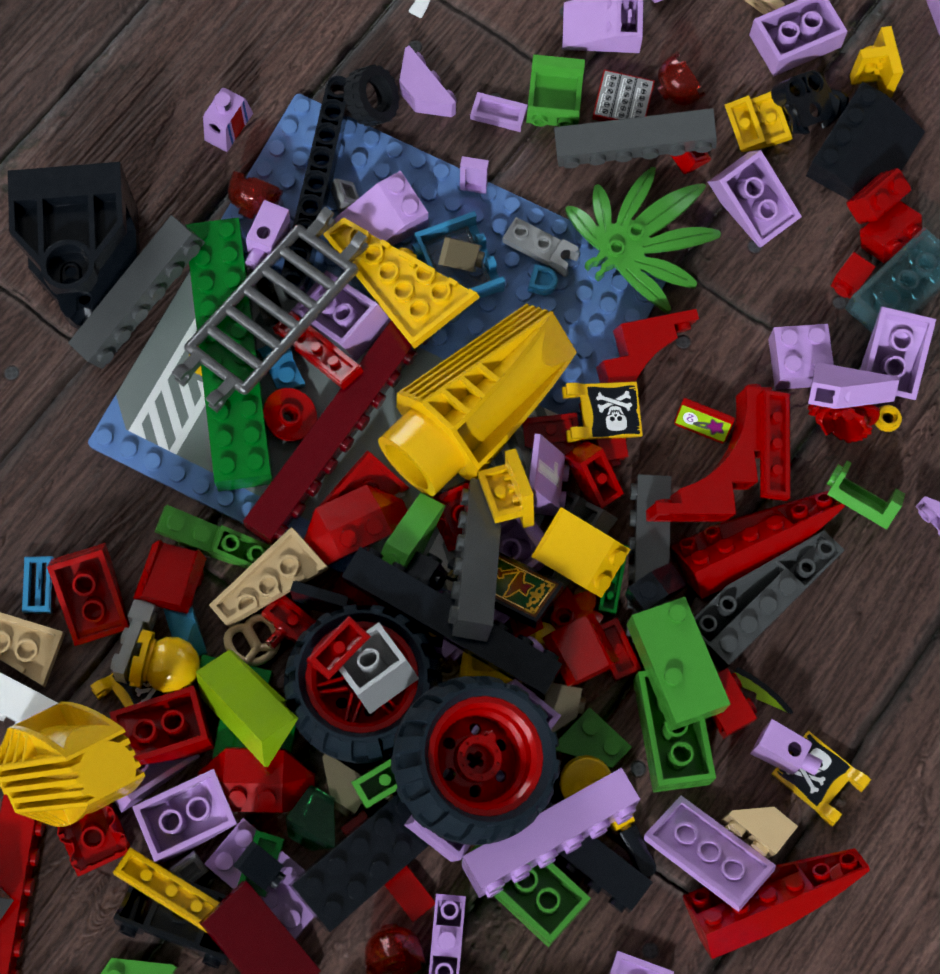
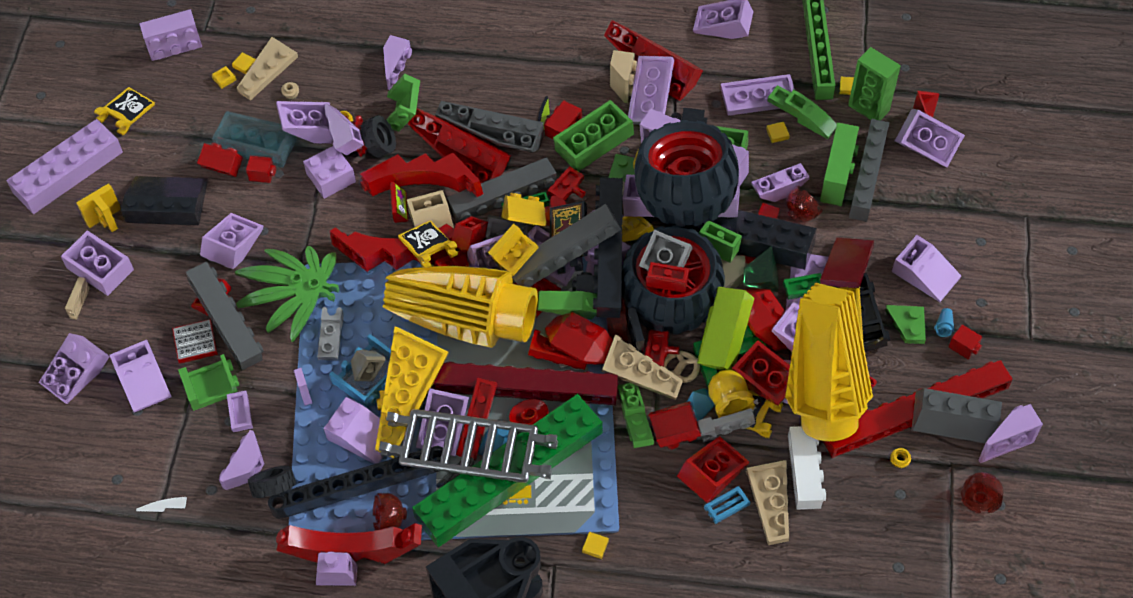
camera: 115 degrees left, 15 degrees down
(85, 407) = (595, 545): none -> yellow tile
(136, 292) = (462, 527): dark grey brick -> none
(245, 136) = (374, 545): none -> red arch
(261, 867) = (808, 274): black slope -> none
(266, 232) = (415, 483): lavender torso -> none
(343, 193) = (355, 462): light grey slope -> none
(543, 280) = (353, 324): dark azure tile -> none
(581, 650) = (578, 188): red slope -> none
(655, 588) = (523, 170): black slope -> none
(659, 448) = (430, 207): none -> tan slope
(678, 82) = (167, 312): clear red cylinder -> none
(678, 663) = (560, 137): bright green brick -> none
(758, 122) = (172, 263): yellow slope -> none
(773, 748) = (572, 77): lavender torso -> none
(775, 445) = (397, 154): red tile -> none
(802, 90) = (141, 241): black piece -> none
(826, 418) = (378, 136): none -> black tyre
(826, 784) = (574, 71): flag -> none
(878, 196) = (200, 172): red brick -> none

